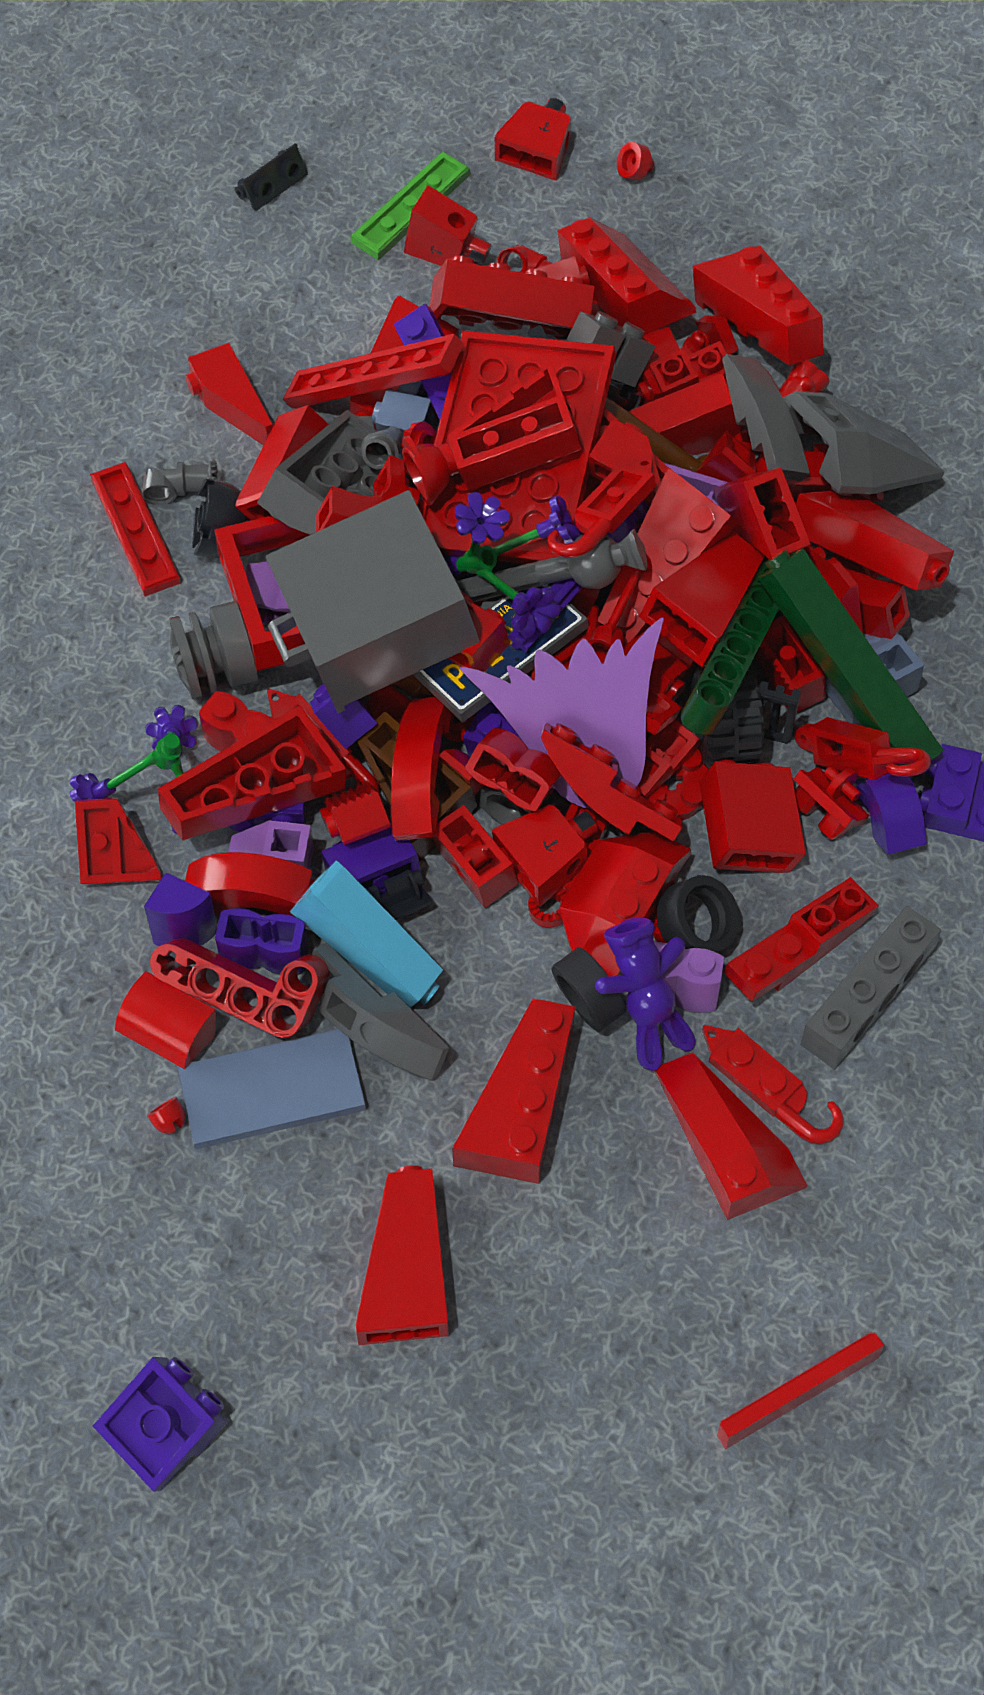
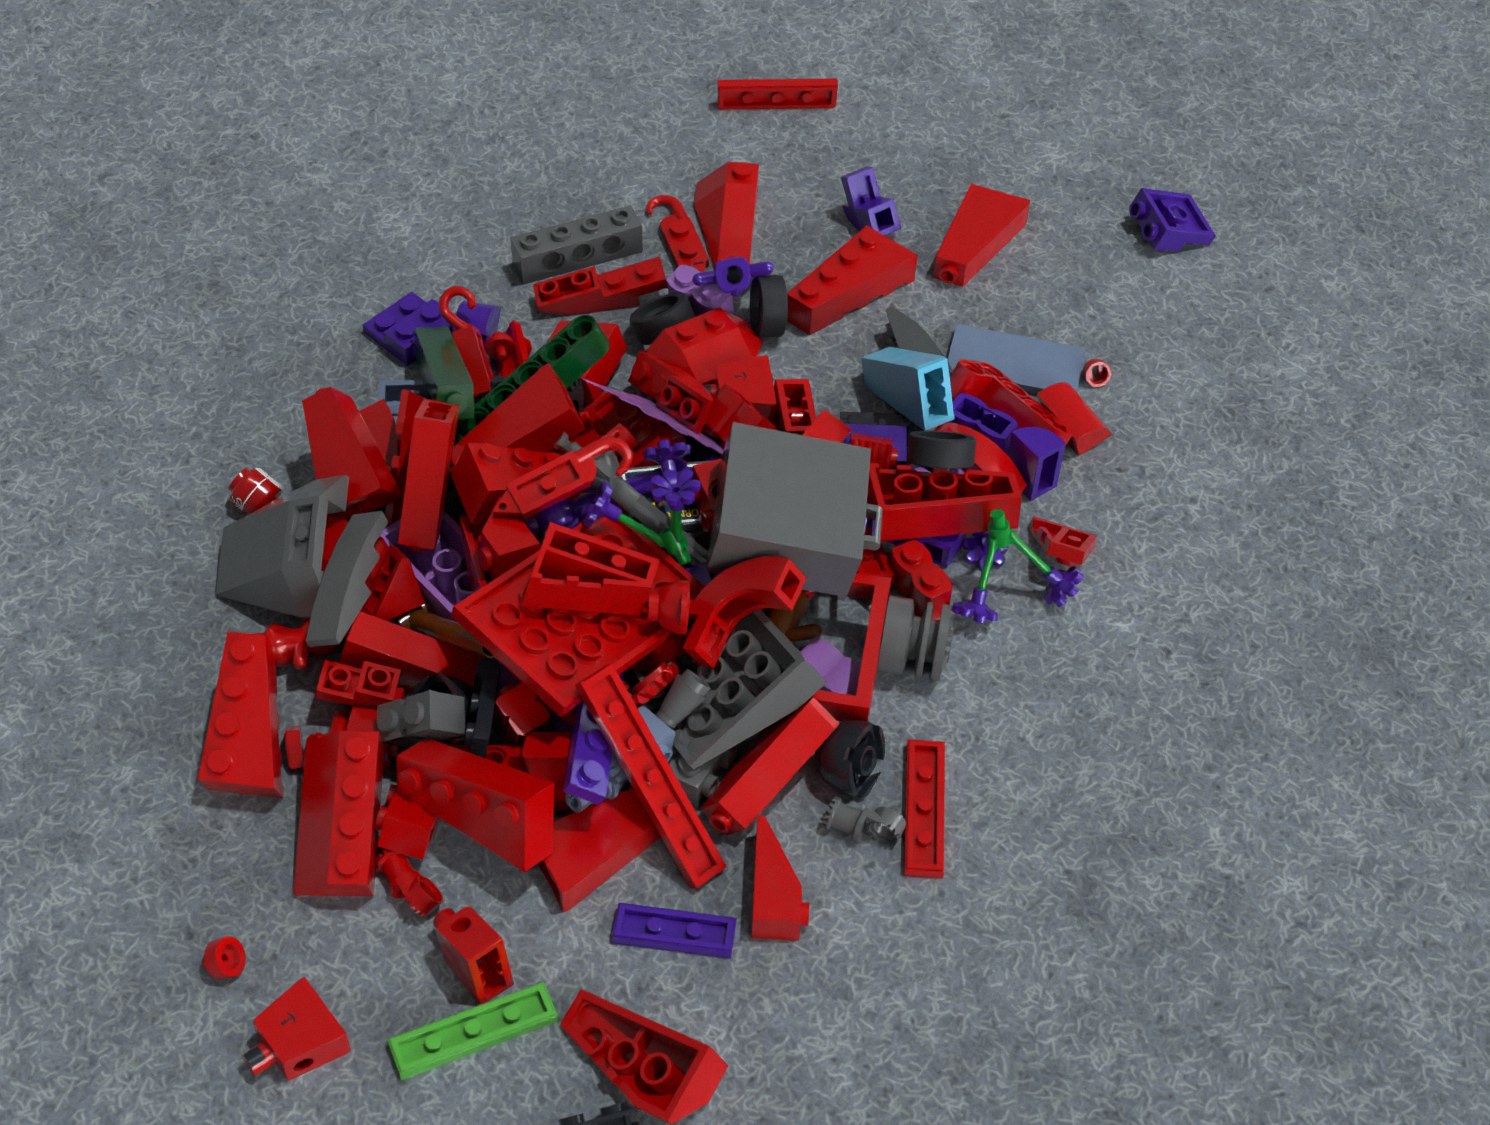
camera: 155 degrees left, 10 degrees down
(249, 229) = (647, 1061): none -> red wedge
(298, 338) = (674, 930): none -> dark purple tile
(302, 828) = (941, 449): none -> black tyre
(558, 1228) = (865, 203): none -> dark purple brick
(952, 524) = (253, 490): none -> red head

